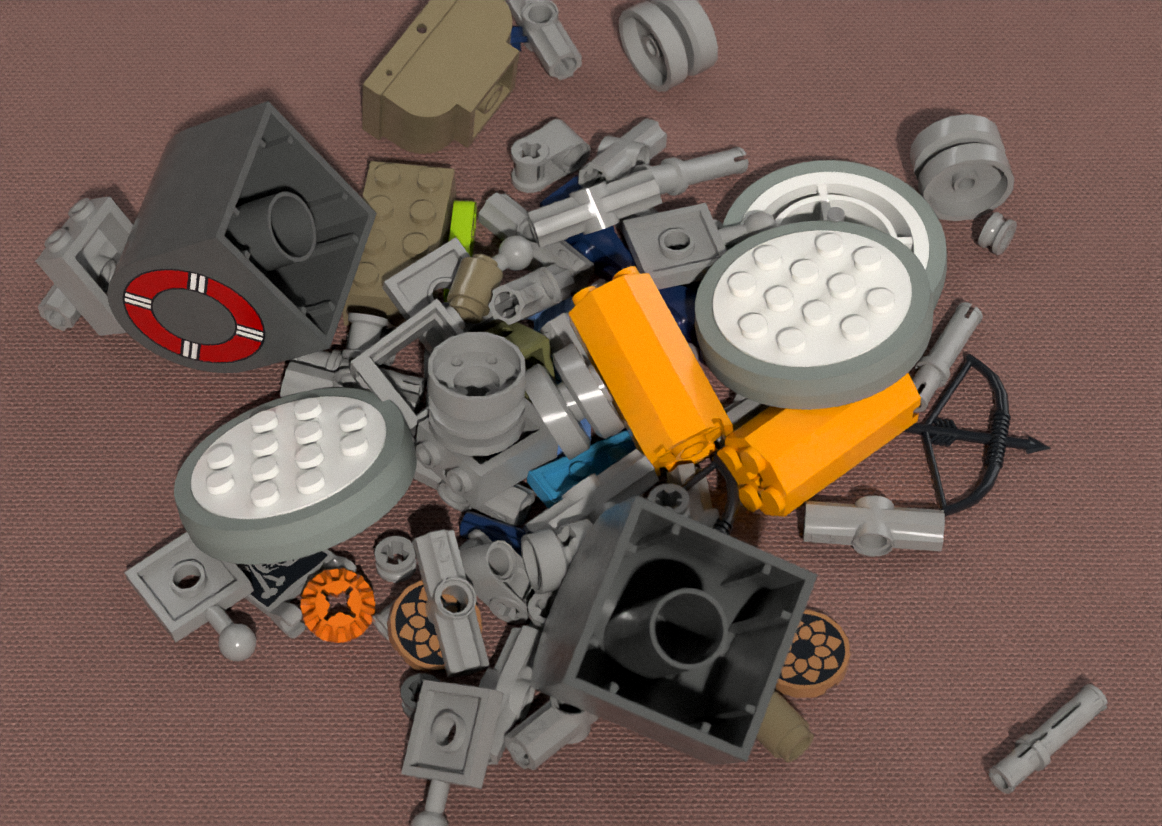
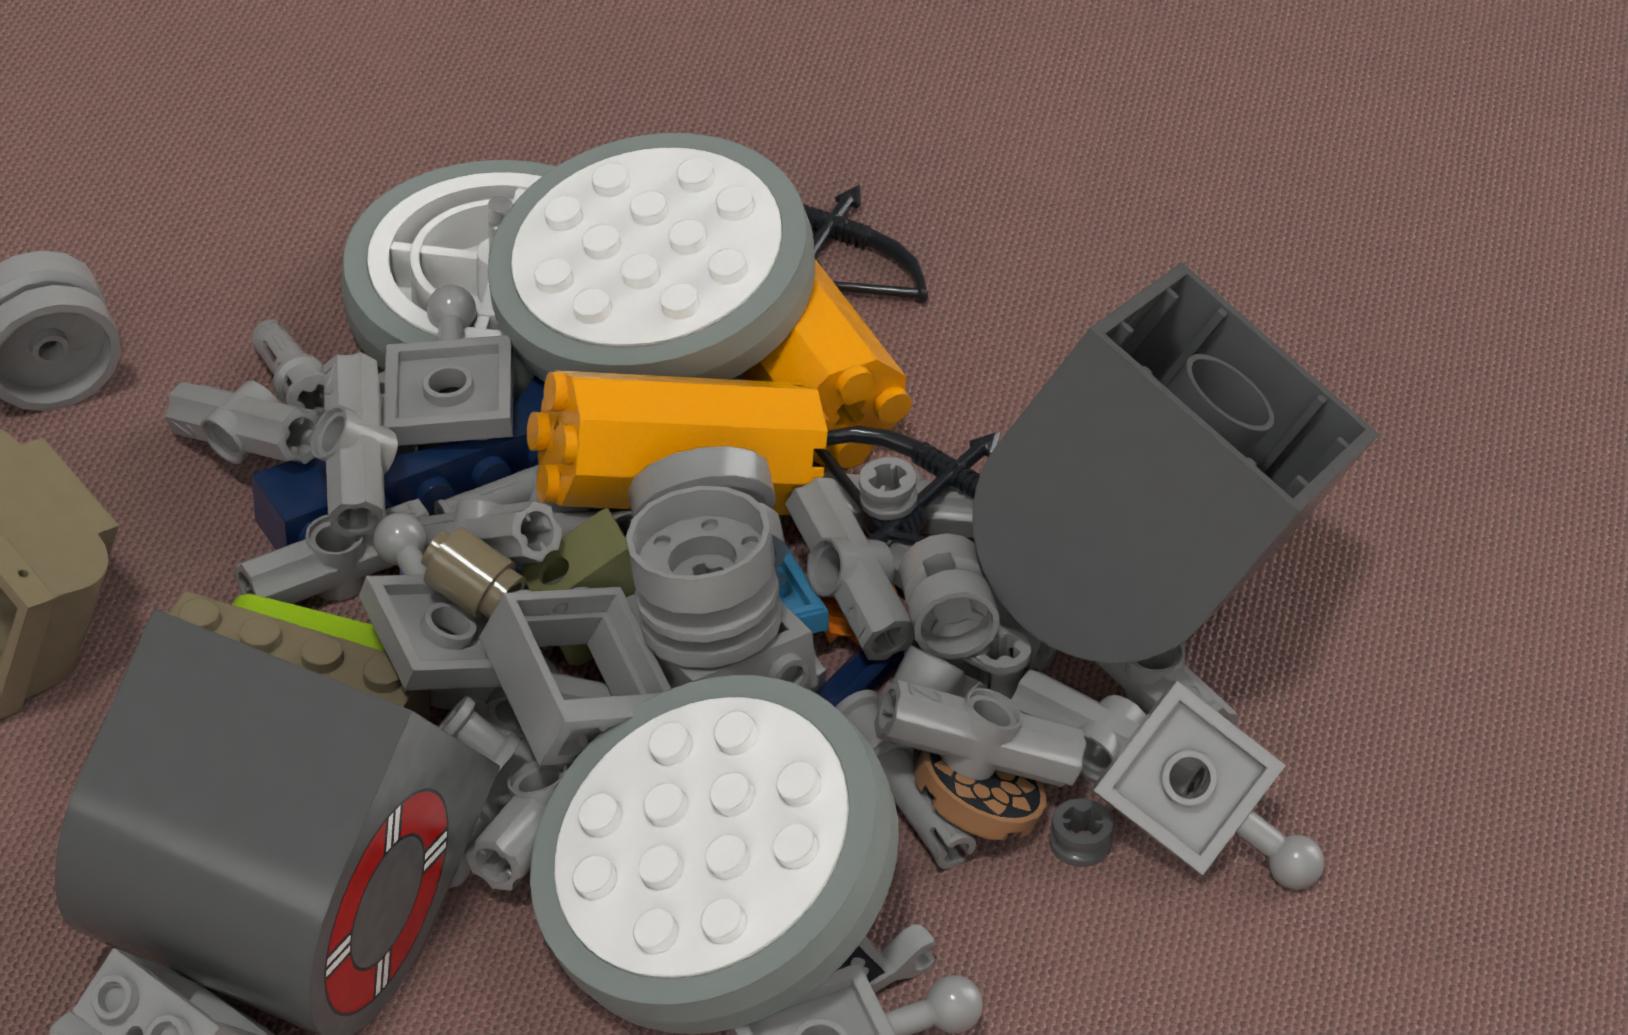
camera: 80 degrees left, 10 degrees down
(340, 627) = (931, 905): orange gear -> none
(547, 156) = (172, 519): light grey piece -> none
(873, 526) = (940, 344): light grey piece -> none
(962, 167) = (415, 120): light grey wheel -> none
(997, 233) = (515, 138): light grey bush -> none
(1034, 750) = (1295, 296): light grey pin -> none

